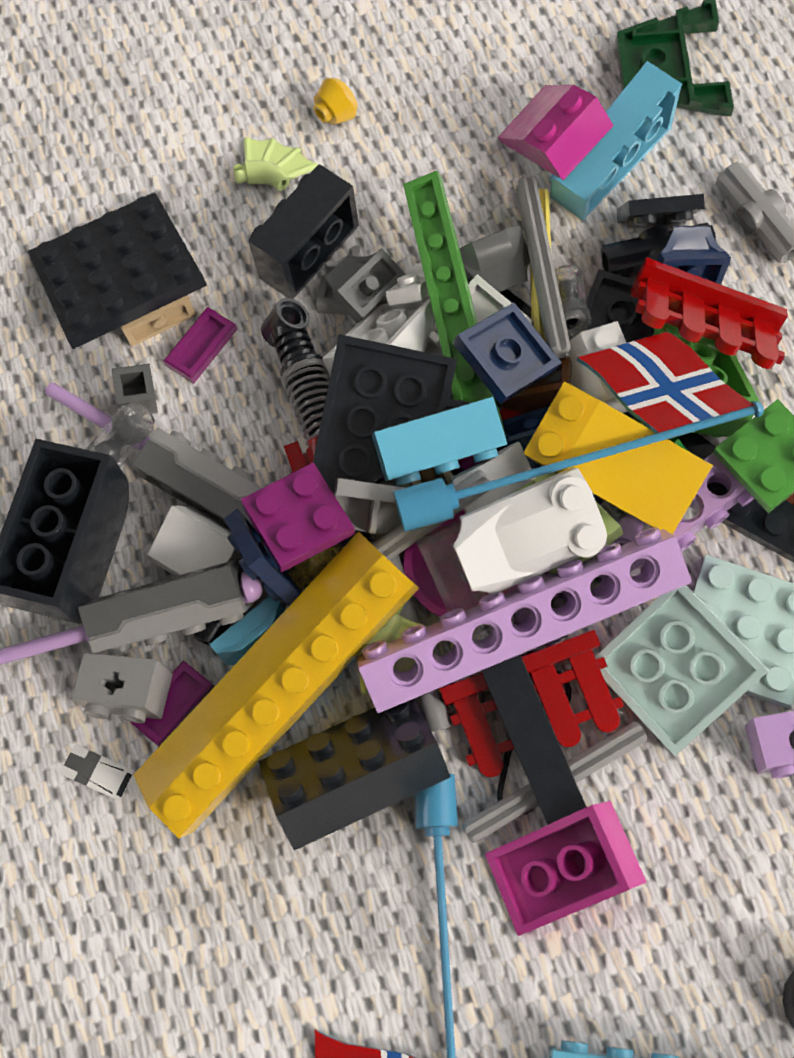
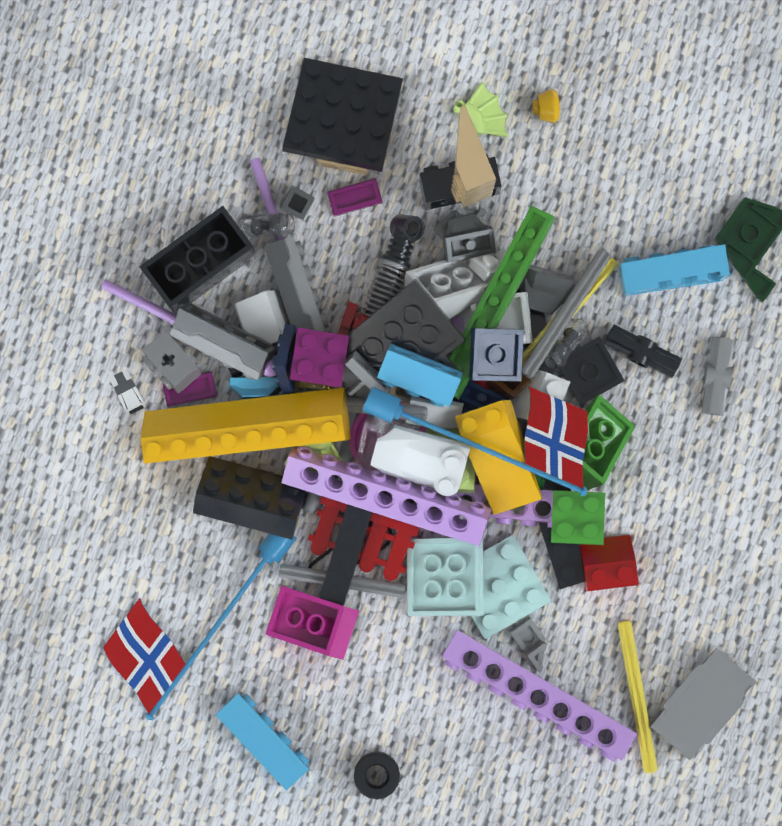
camera: 30 degrees right, 15 degrees up
(293, 148) = (473, 174): none -> tan slope
(558, 128) = (645, 235): dark pink slope -> none
(672, 210) = (659, 331): black plate -> none
(696, 252) = (647, 374): dark blue slope -> none
(709, 311) = (631, 404): red fence -> none

